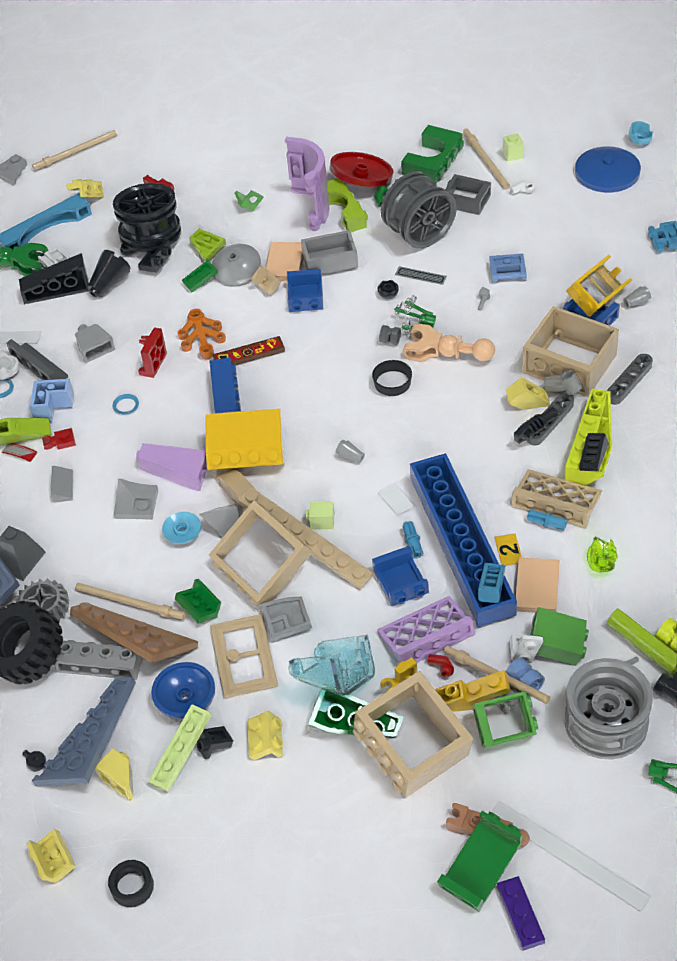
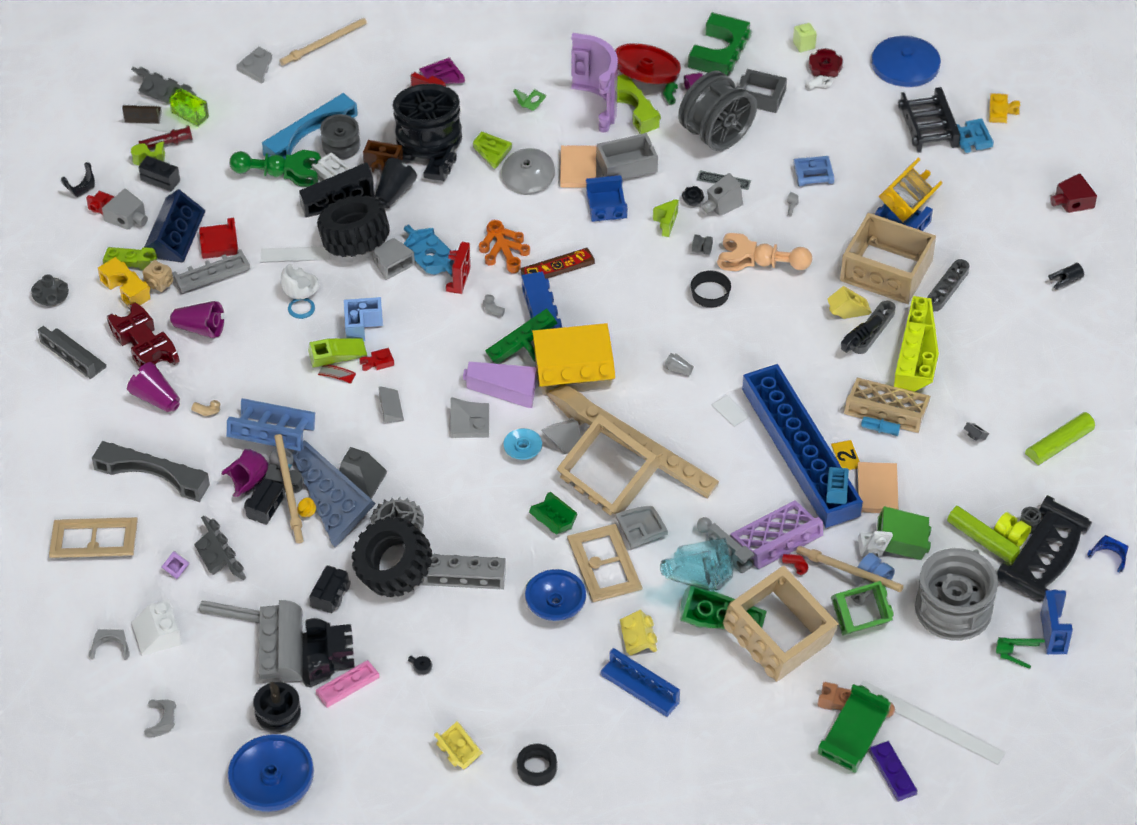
camera: 10 degrees left, 0 degrees up
(35, 361) = (334, 280): dark grey panel -> none
(59, 312) = (353, 226): none -> black tyre
(68, 231) = (340, 136): none -> dark grey wheel
(87, 188) = (353, 87): light yellow bracket -> none
(87, 741) = (470, 647): sand blue wing -> none
(97, 244) = (378, 152): none -> reddish brown brick
(117, 772) = (504, 671): light yellow slope -> none
(124, 329) = (425, 242): none -> dark azure plate
(125, 396) = (438, 313): dark azure piece -> none
(139, 637) = (498, 546): medium nougat wing -> none
(164, 610) = (520, 523): tan bar -> none
(176, 175) = (443, 70): none -> magenta wing
(178, 391) = (490, 306): none -> light grey arm
(180, 748) = (562, 646): yellowish green plate -> none
(196, 421) = (521, 338): none -> green plate
(199, 276) = (491, 184): green plate -> none
(213, 739) = (590, 638): black bracket -> none
(258, 794) = (640, 684): none -> blue fence
(266, 280) = (564, 188): tan bracket -> none
(321, 515) = (660, 427): yellowish green brick -> none
(360, 307) = (666, 215): none -> lime slope
(383, 653) = (738, 554): none -> light grey plate
(399, 576) = (745, 483): blue panel -> none
(402, 672) = (764, 569): yellow plate -> none
(412, 539) = (753, 448): dark azure axle -> none
(419, 285) = (724, 196): none -> light grey torso
(425, 319) = (738, 226): plant -> none
(461, 695) = (841, 581): yellow slope -> none
(473, 141) = (761, 30): tan bar -> none
(535, 175) = (819, 68): none -> dark red plate
(565, 382) = (886, 290): light grey piece -> none
(594, 450) = (922, 357): black slope -> none
(602, 555) = (936, 457): clear neon green hat -> none
(637, 297) = (949, 200): light grey cone -> none
(640, 133) = (937, 21): medium azure hair -> none
(642, 223) = (942, 110): none -> black fence
(645, 529) = (975, 431): none -> black plate

